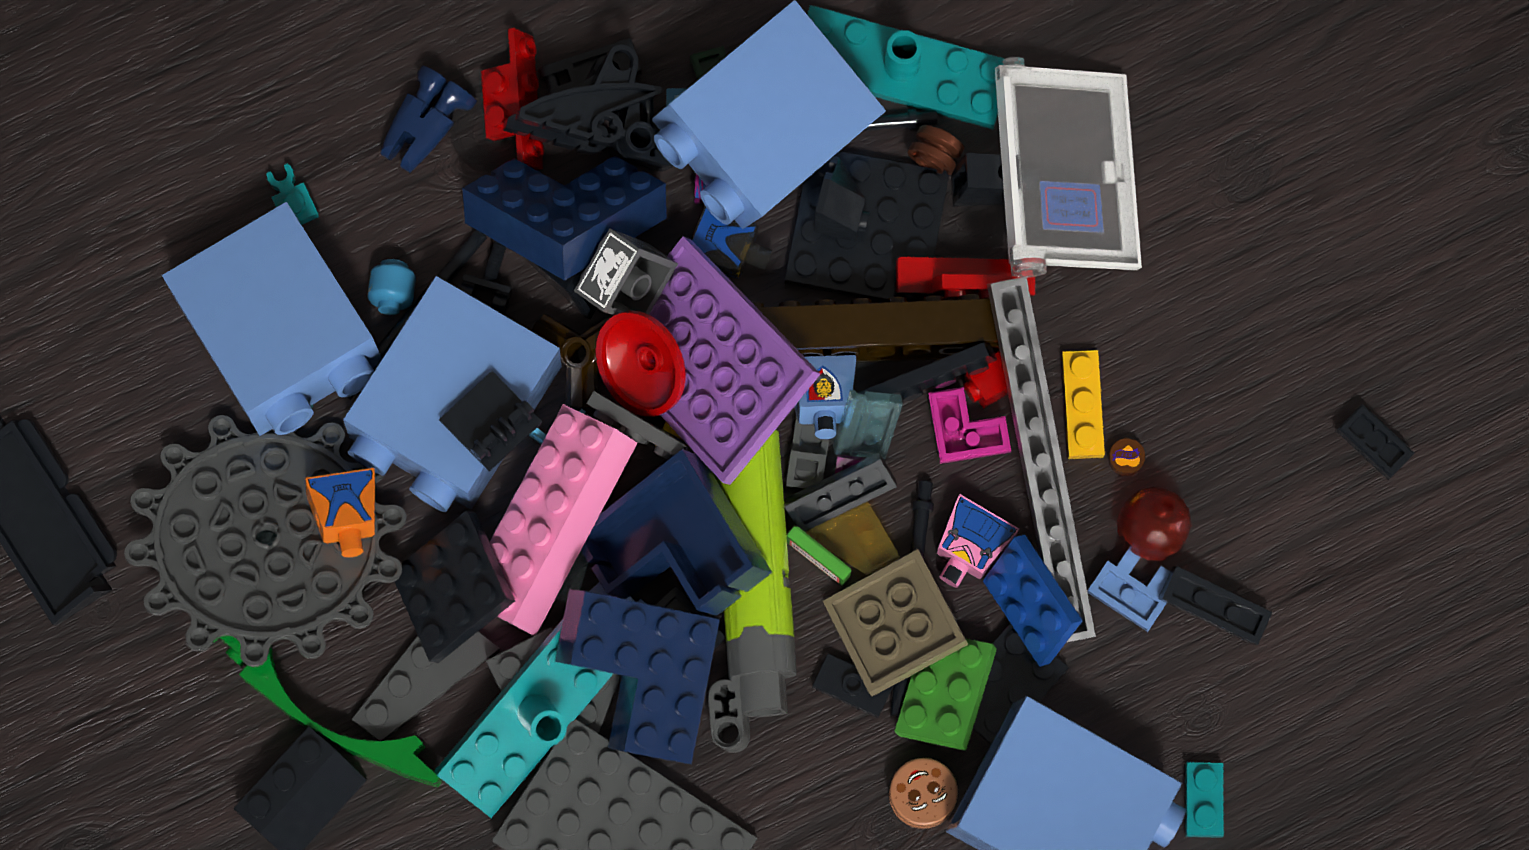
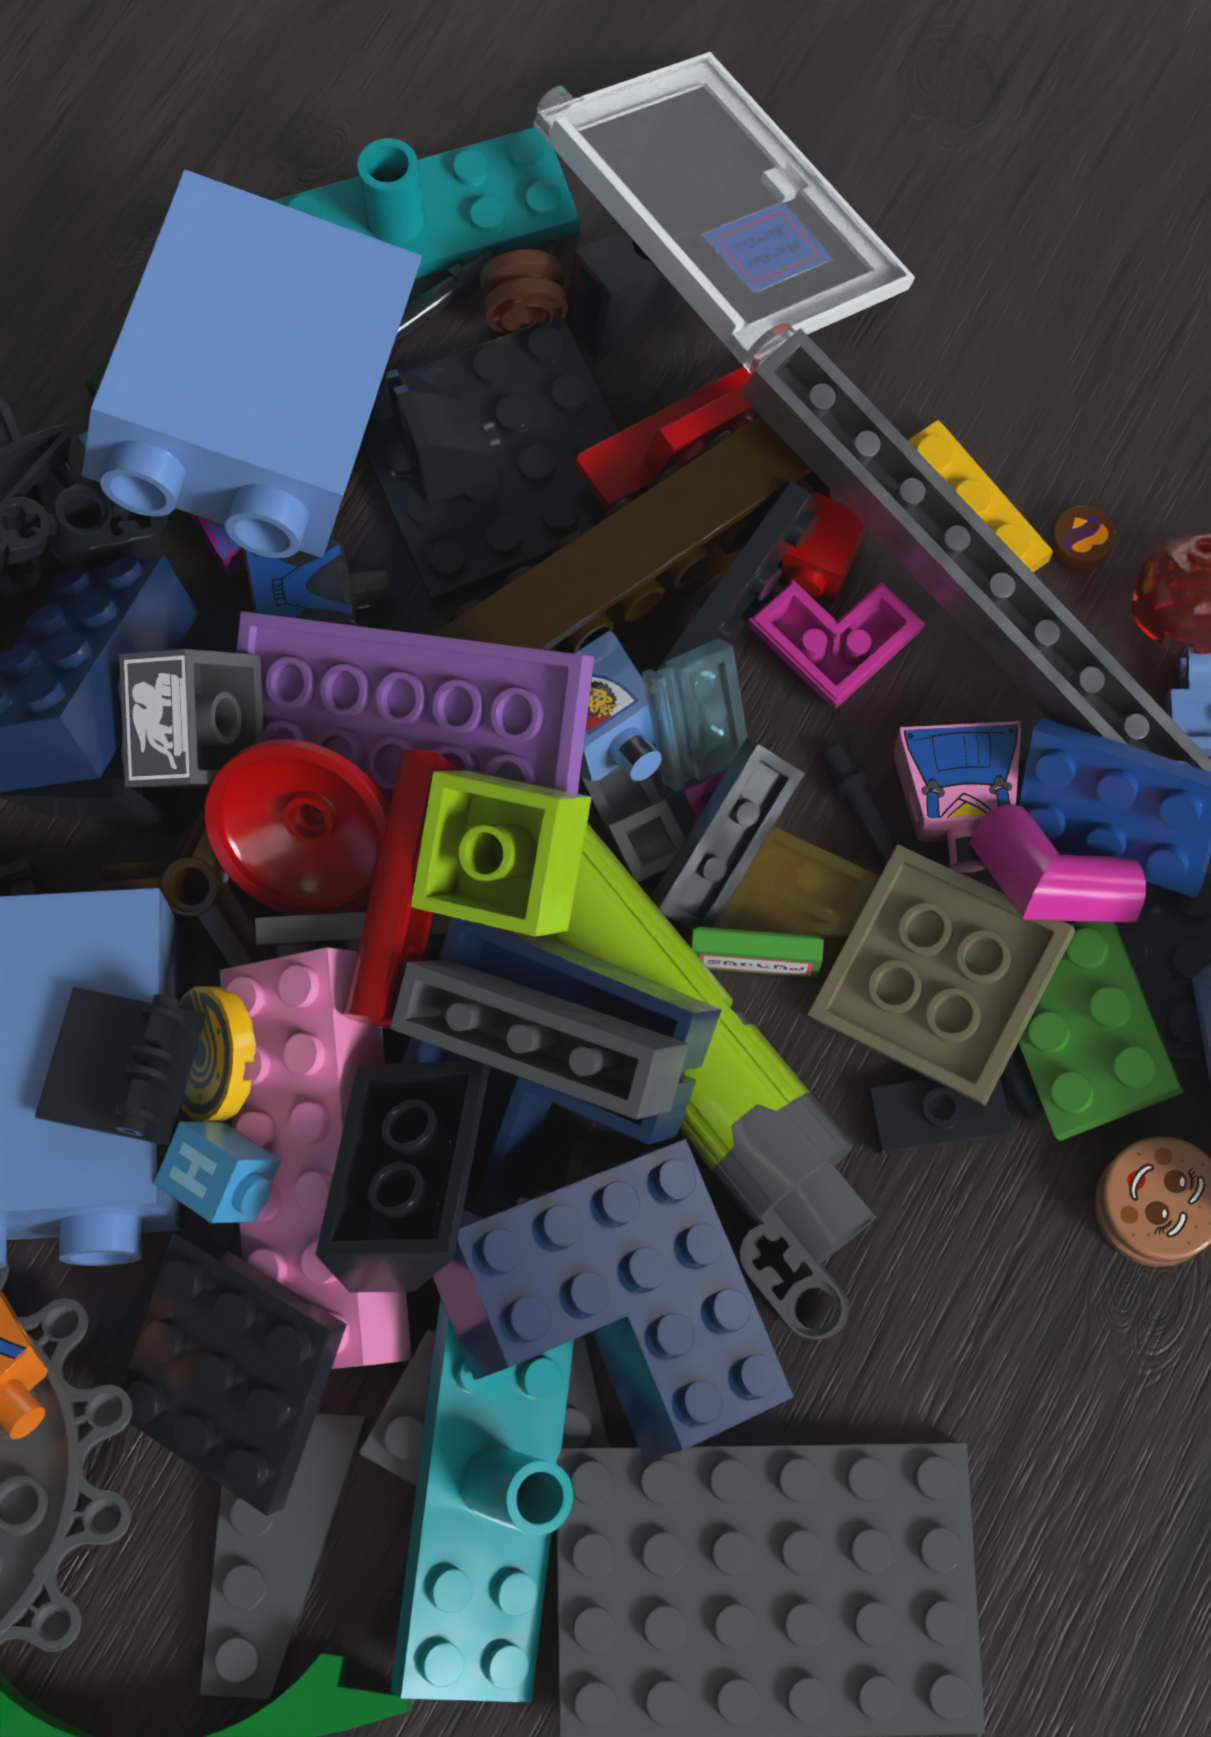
camera: 30 degrees left, 5 degrees down
(503, 497) = (217, 1172): none -> dark azure brick
(542, 442) = (226, 1042): none -> yellow tile
(581, 550) = (402, 1174): none -> black slope
(667, 424) = (392, 928): none -> red brick
(678, 531) = (540, 1037): none -> dark grey brick
(718, 437) = (500, 852): none -> lime brick
(970, 615) = (1050, 884): none -> dark pink brick

